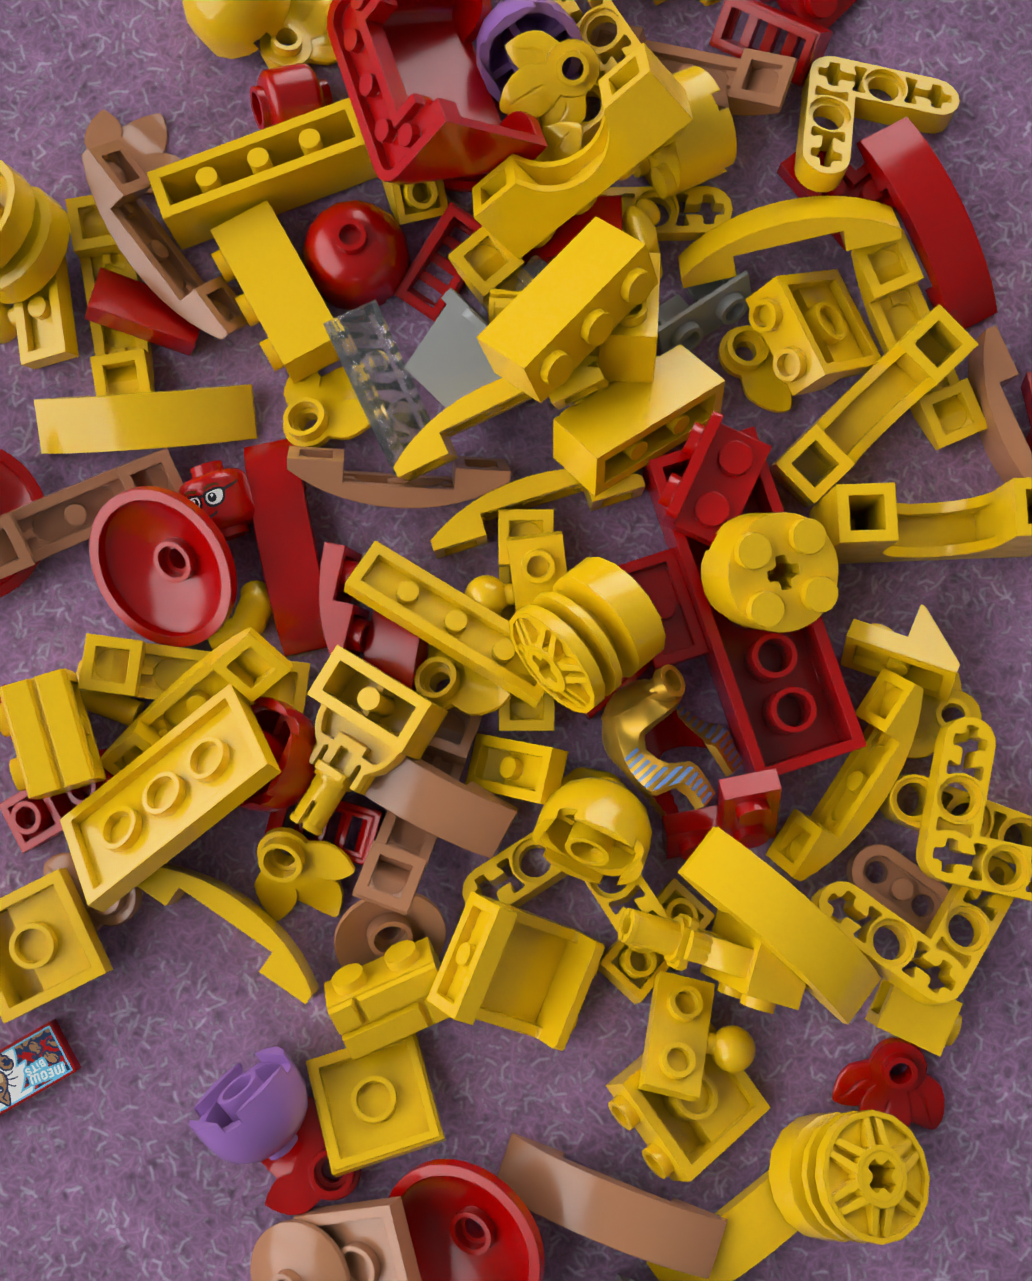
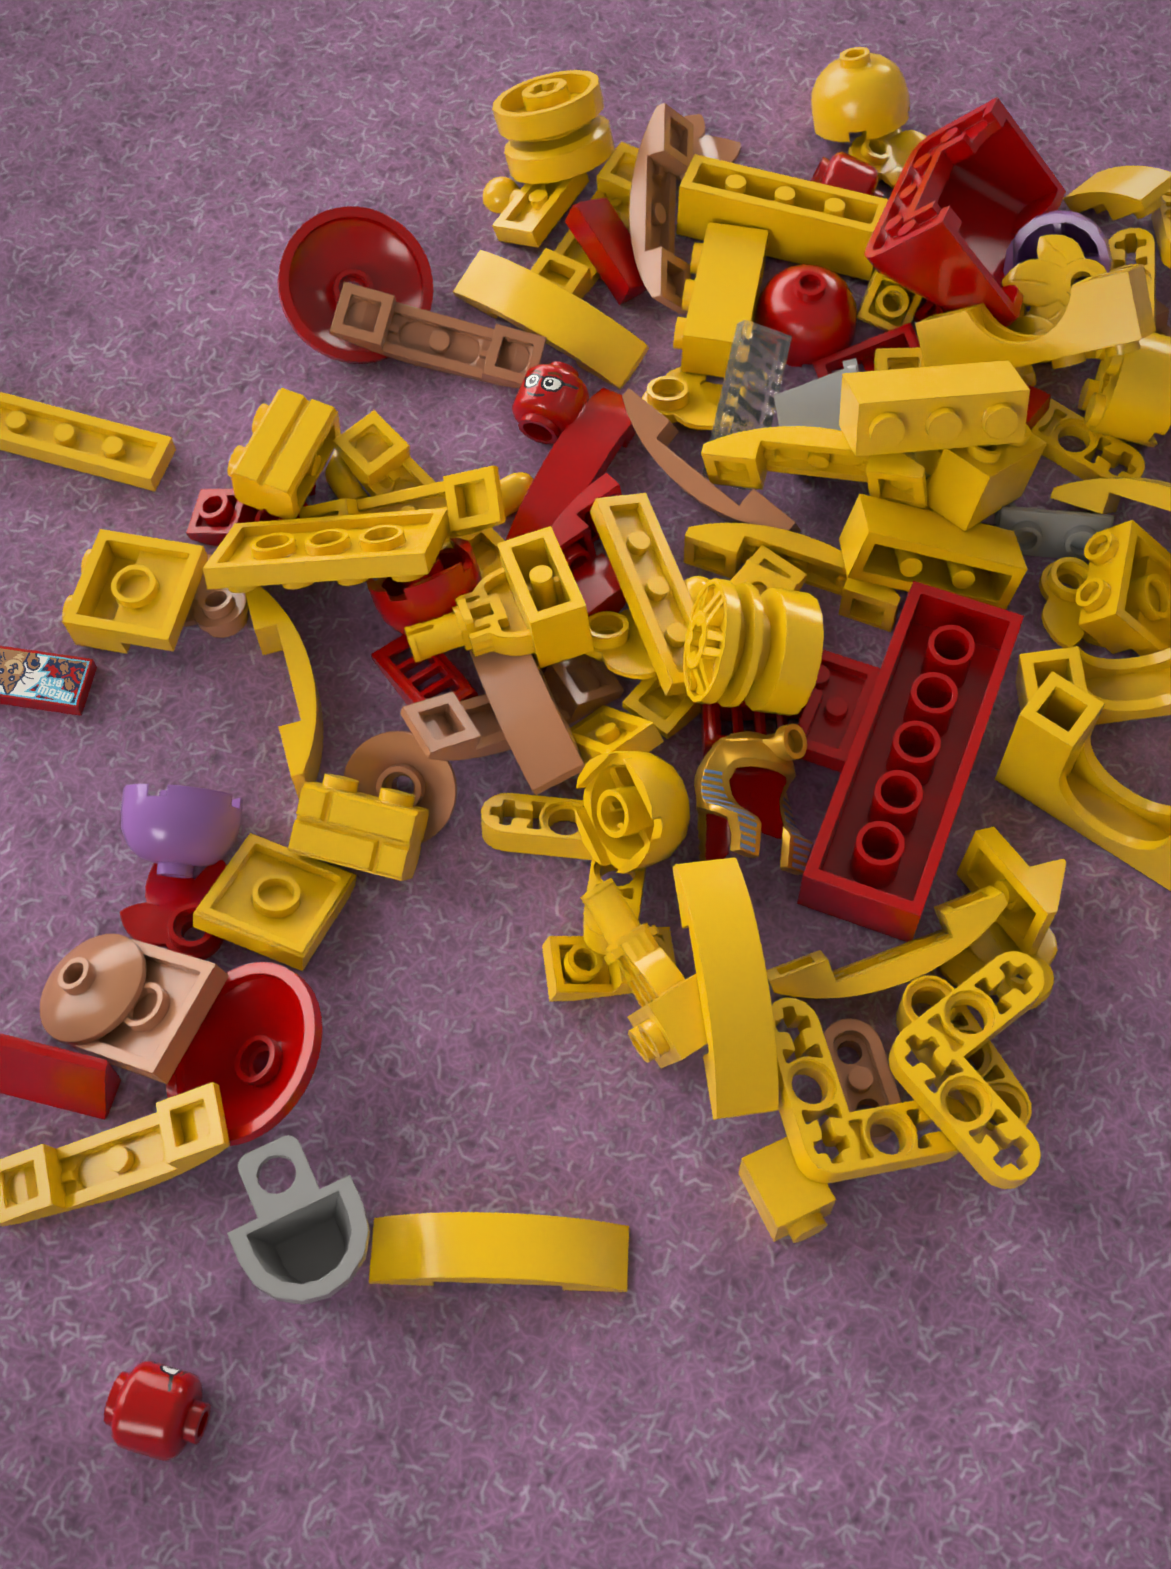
camera: 40 degrees right, 20 degrees down
(163, 566) = (471, 404): red dish -> none
(306, 876) = (367, 698): yellow plate -> none
(516, 971) = (476, 880): yellow panel -> none
(611, 1210) = (391, 1138): nougat slope -> none
(640, 223) = (1052, 429): yellow arm -> none
(681, 1039) = (569, 1033): yellow plate -> none
(682, 1133) = (525, 1100): yellow plate -> none
(715, 481) = (952, 621): red bracket -> none
(744, 810) = (780, 895): red plate -> none
(800, 567) = (975, 691): yellow brick -> none
(850, 1177) = (578, 1257): yellow wheel -> none
(907, 1096) = (703, 1254): red plate -> none

